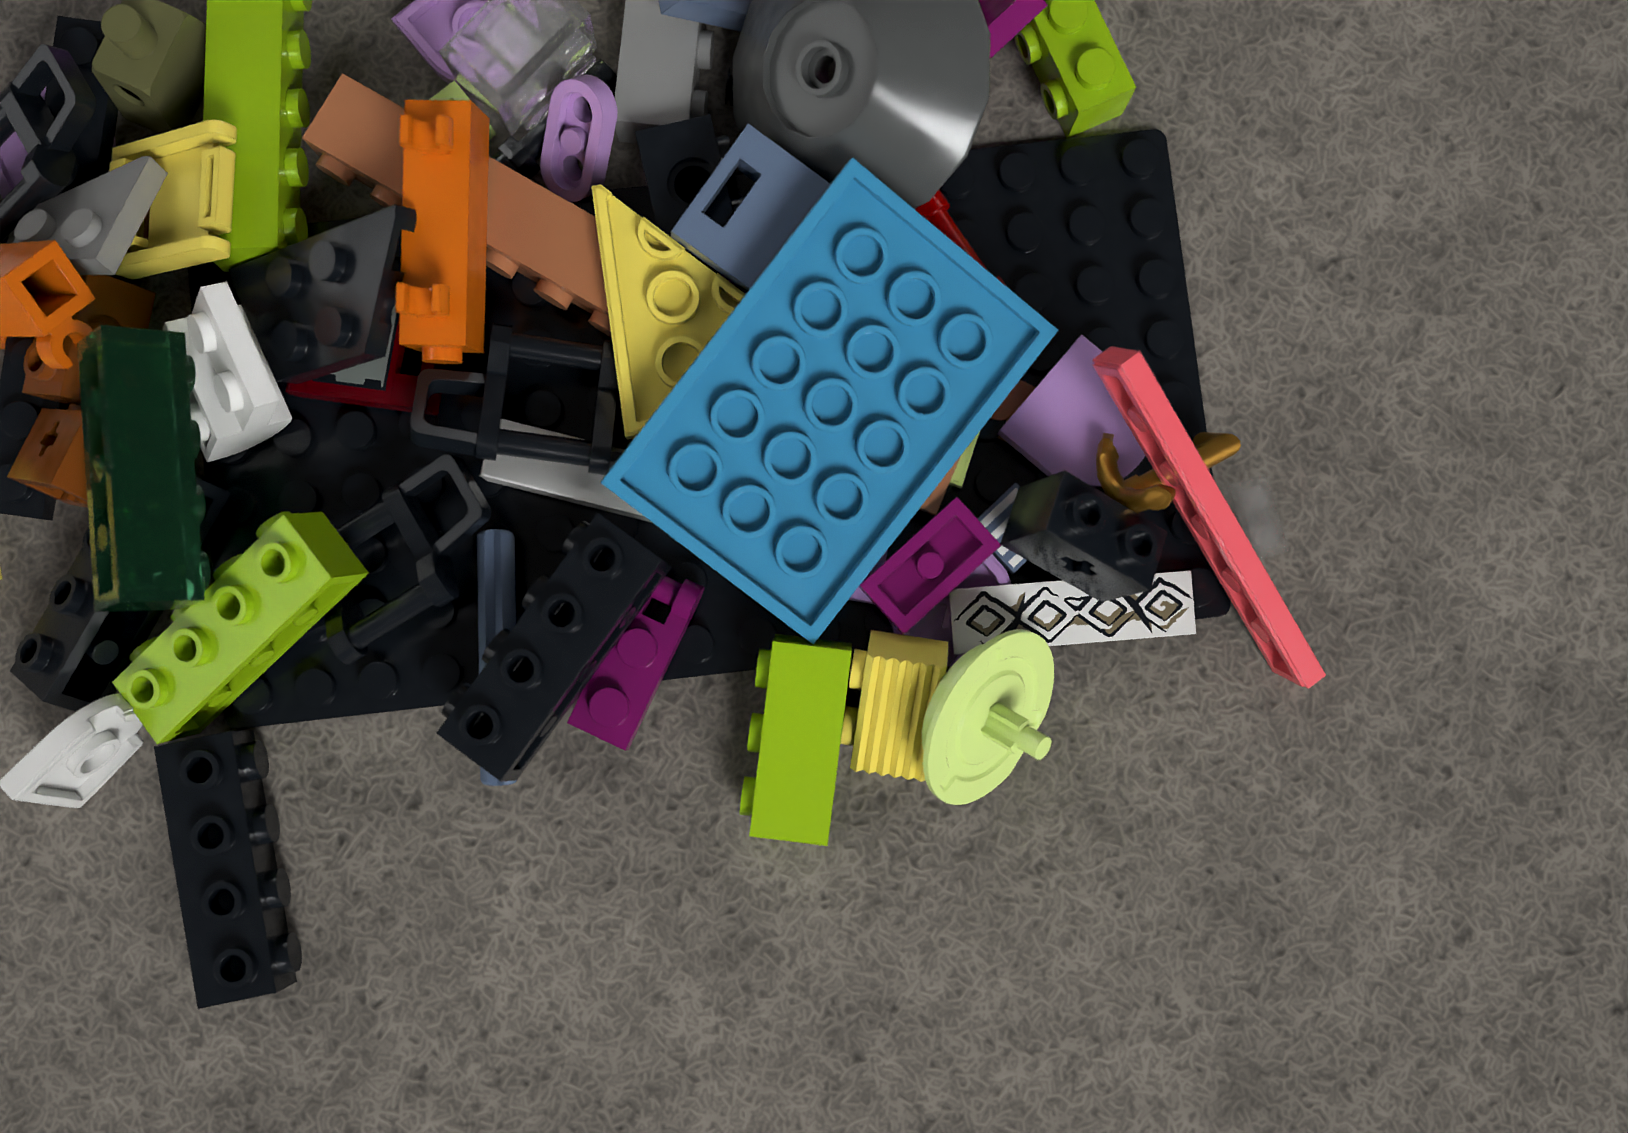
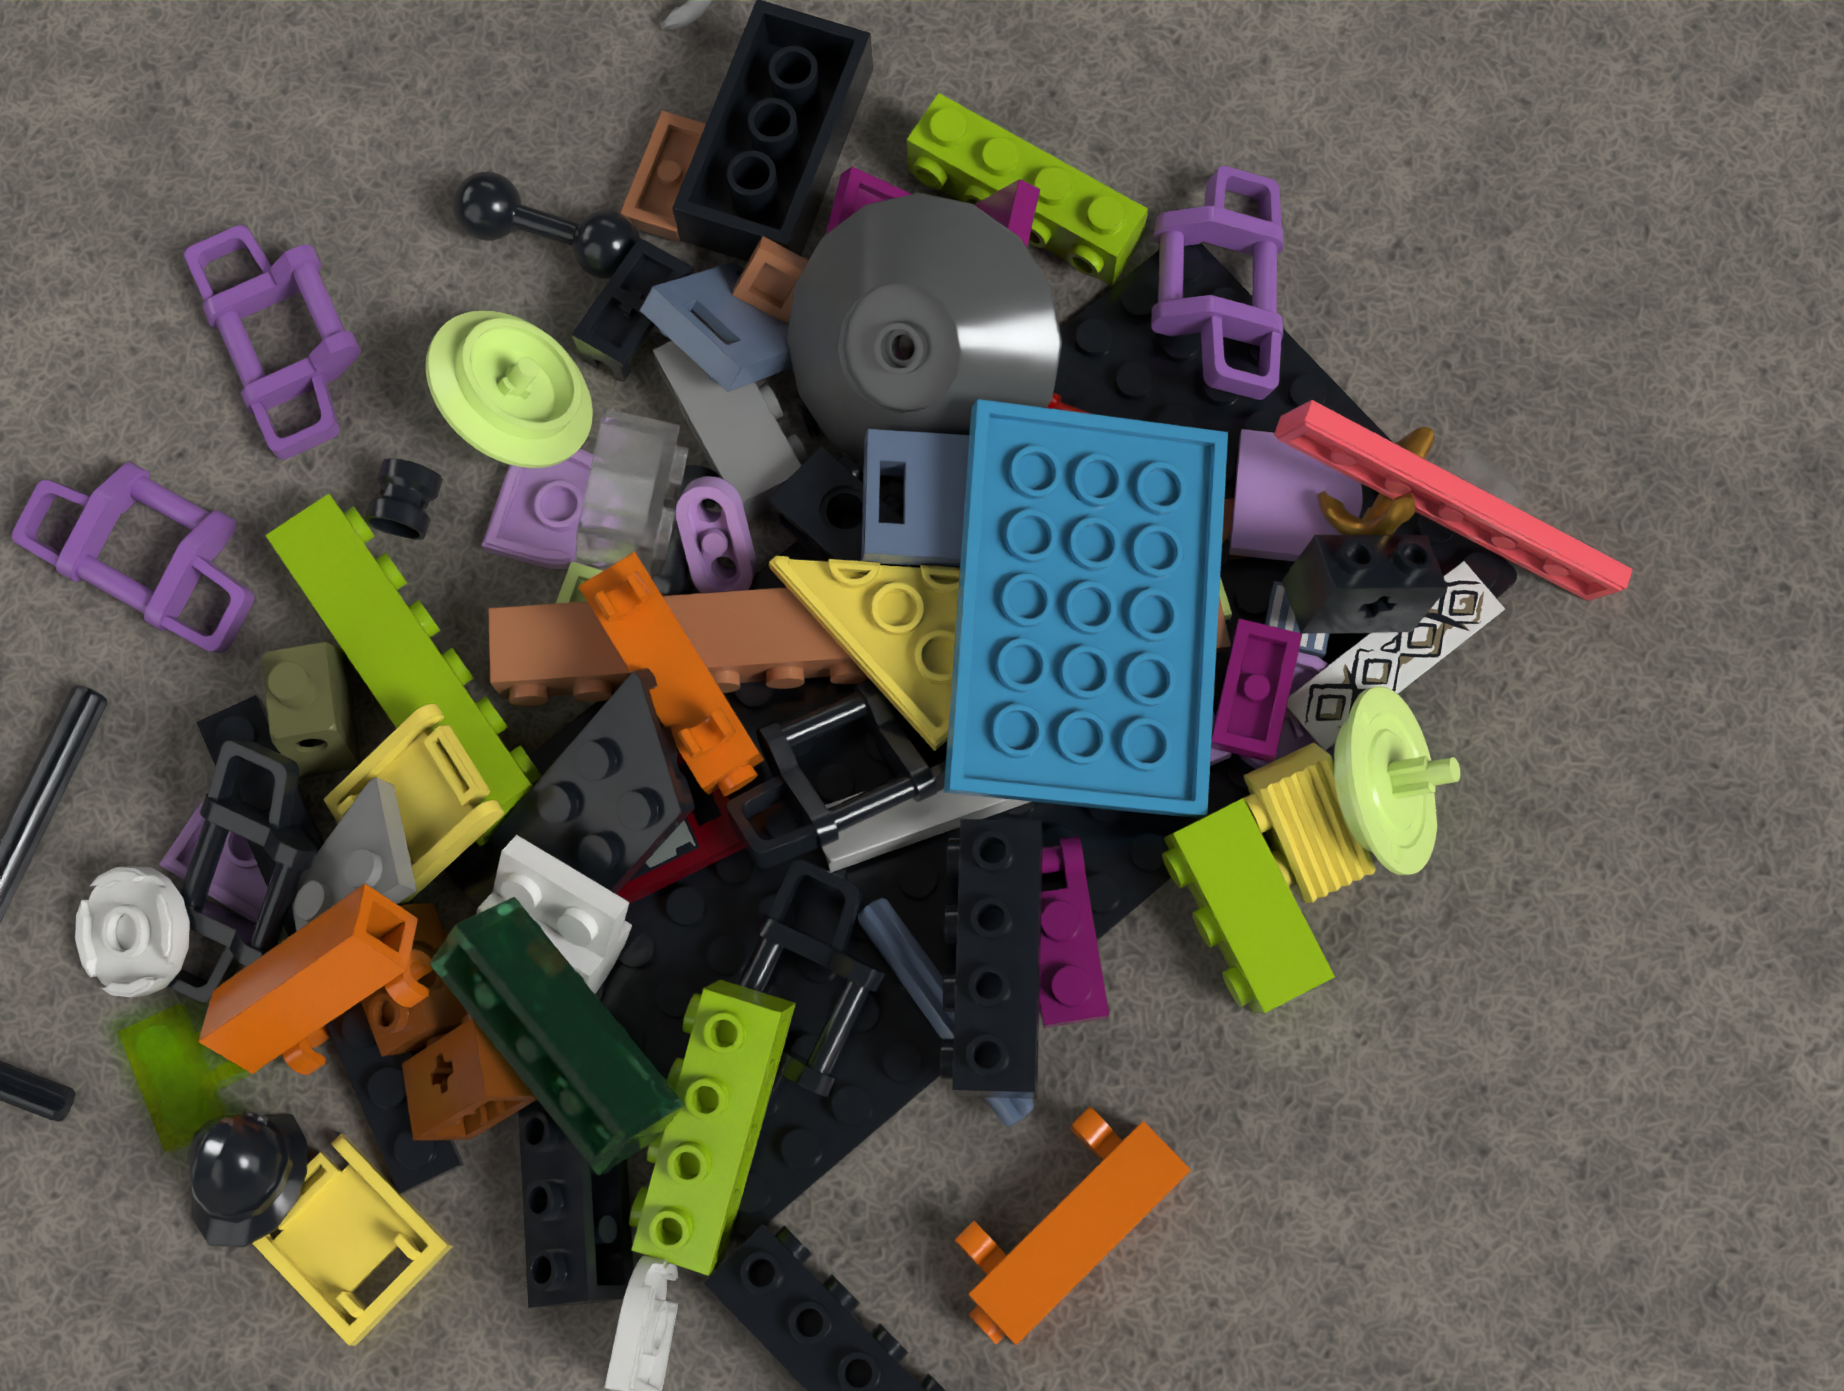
camera: 30 degrees left, 10 degrees down
(478, 905) = (1075, 1234): none -> orange brick
(1132, 224) = (1215, 315): none -> medium lavender bar

